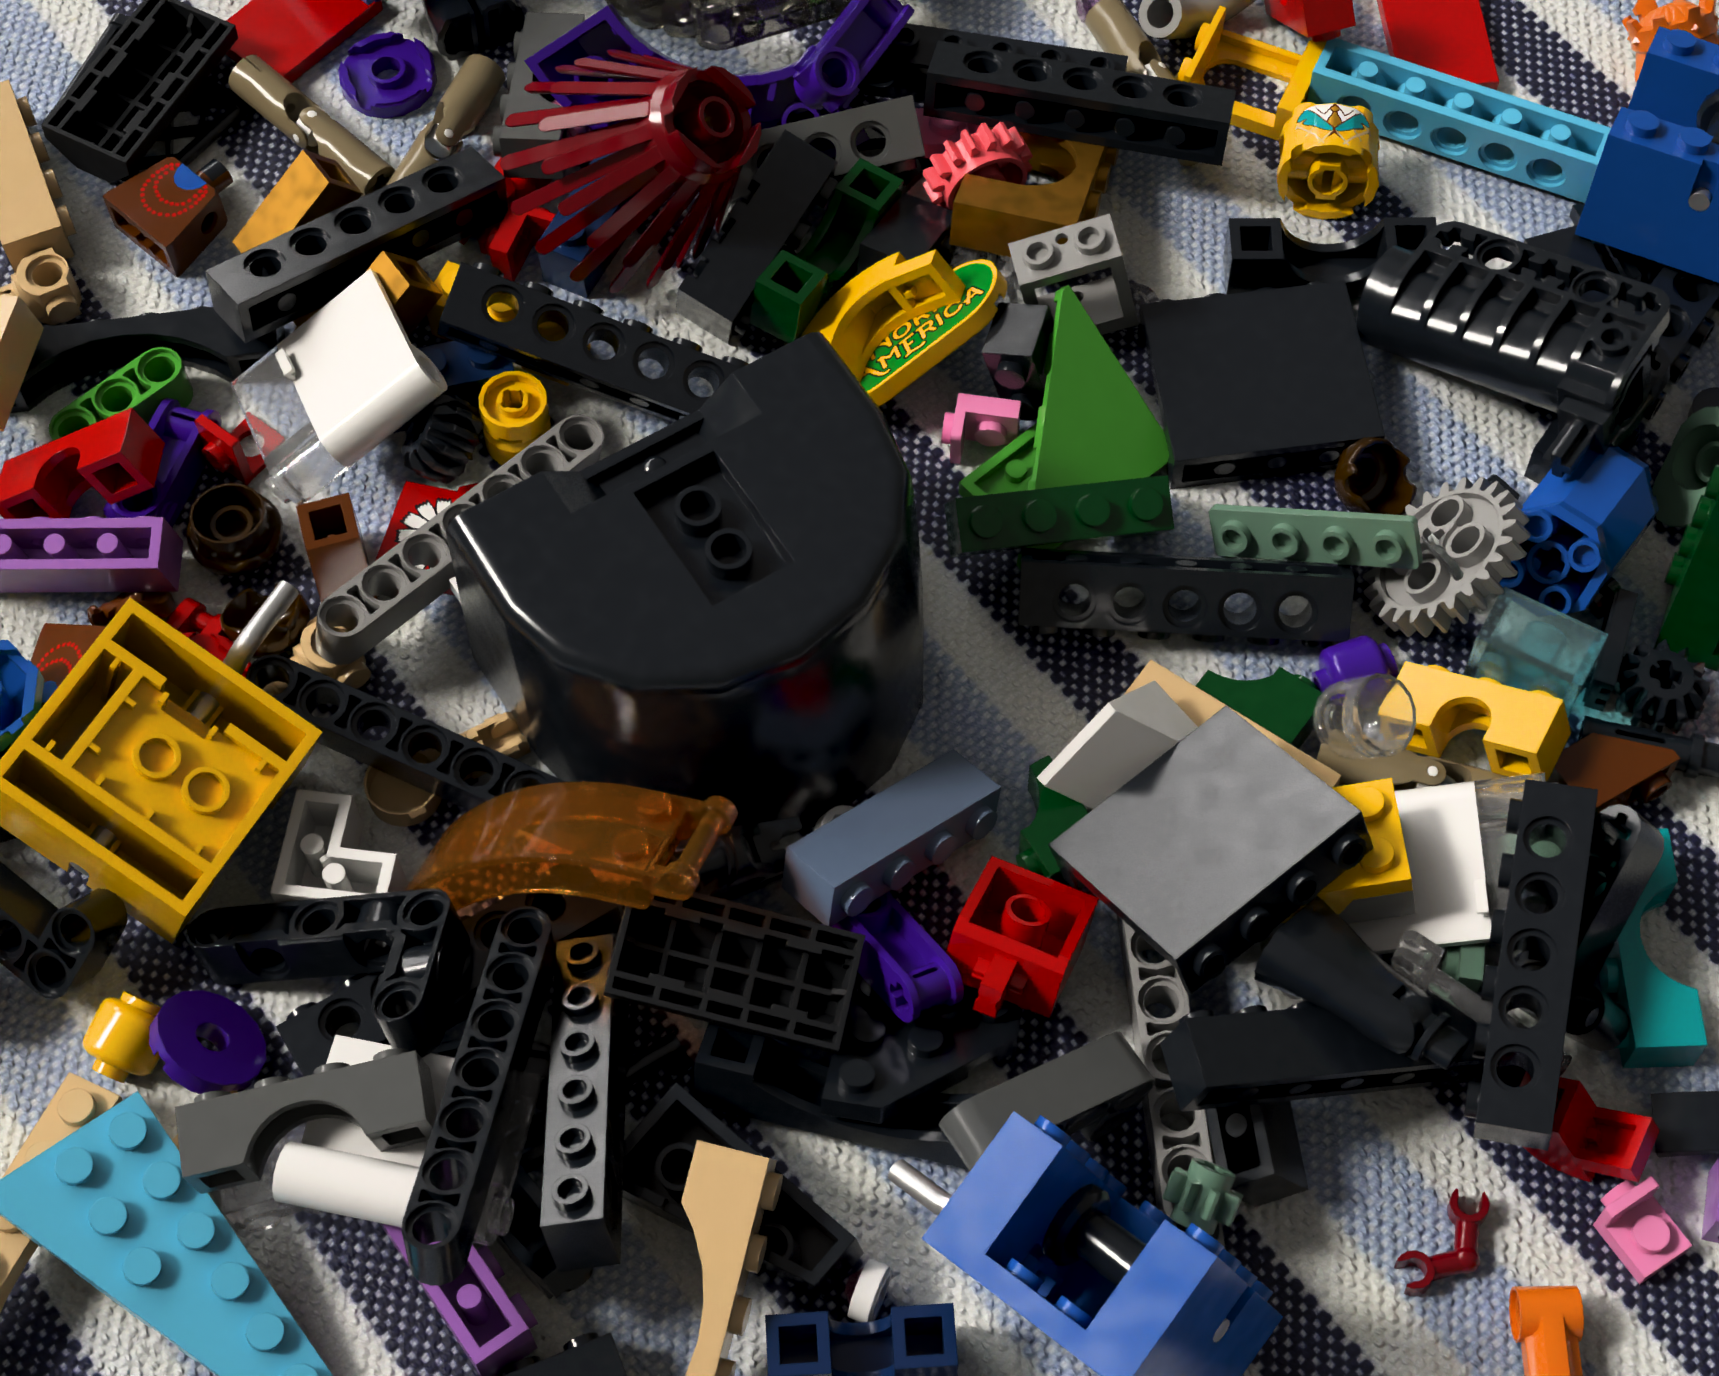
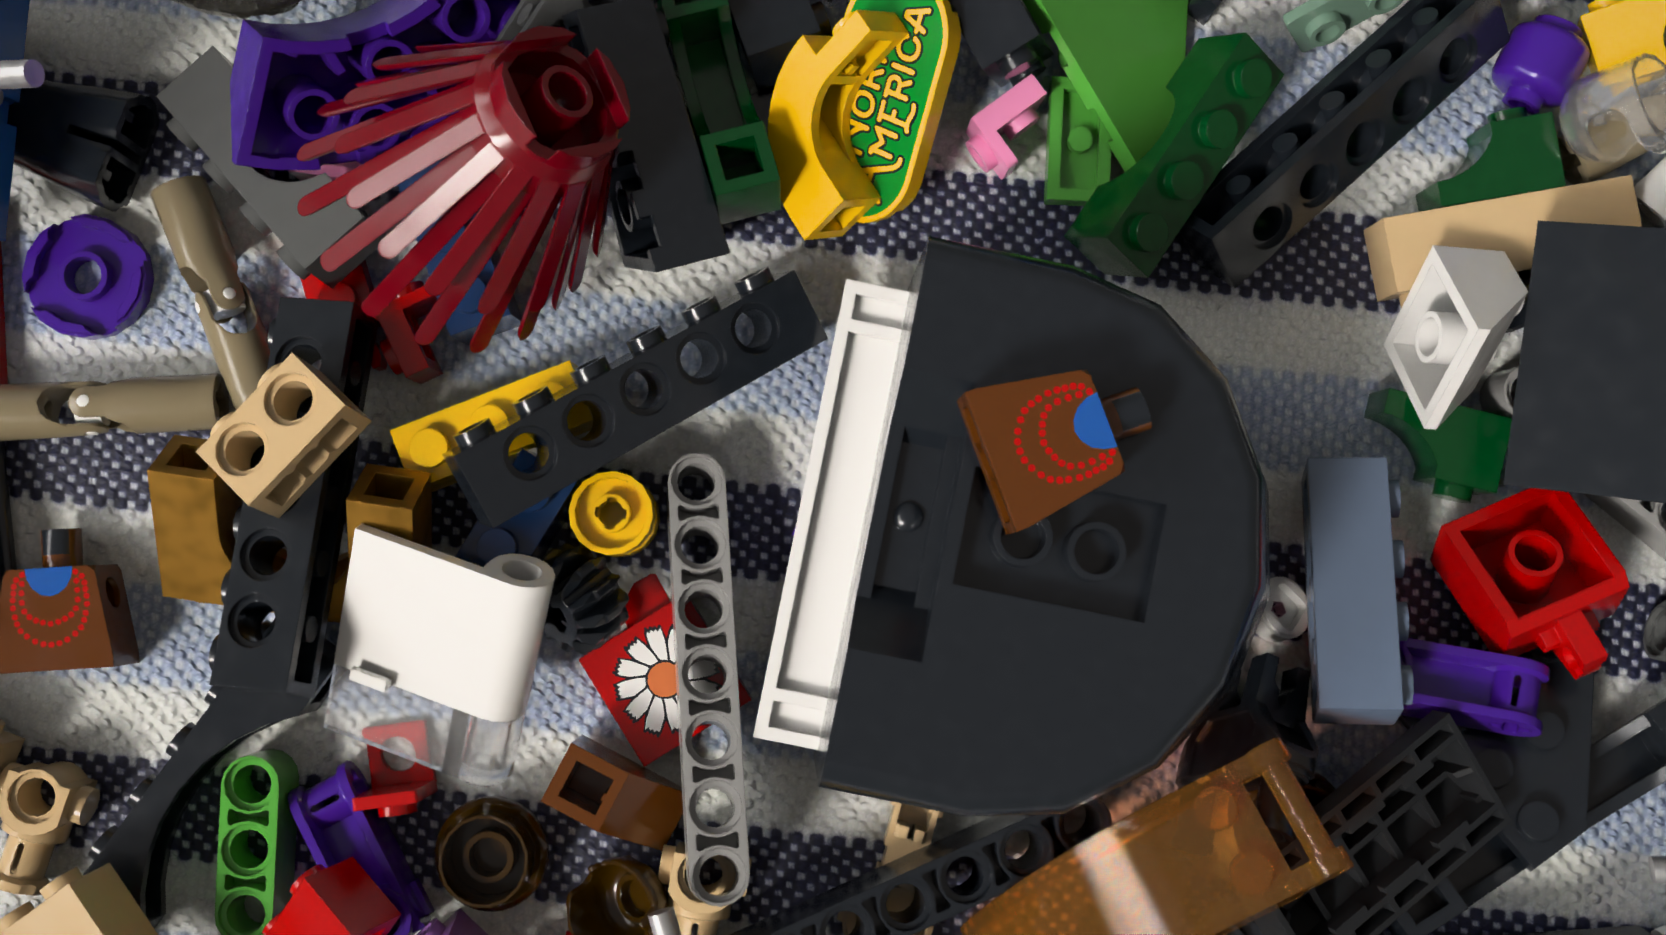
camera: 50 degrees left, 25 degrees up
(389, 191) = (293, 447): none -> tan brick
(759, 457) = (1048, 441): none -> reddish brown torso

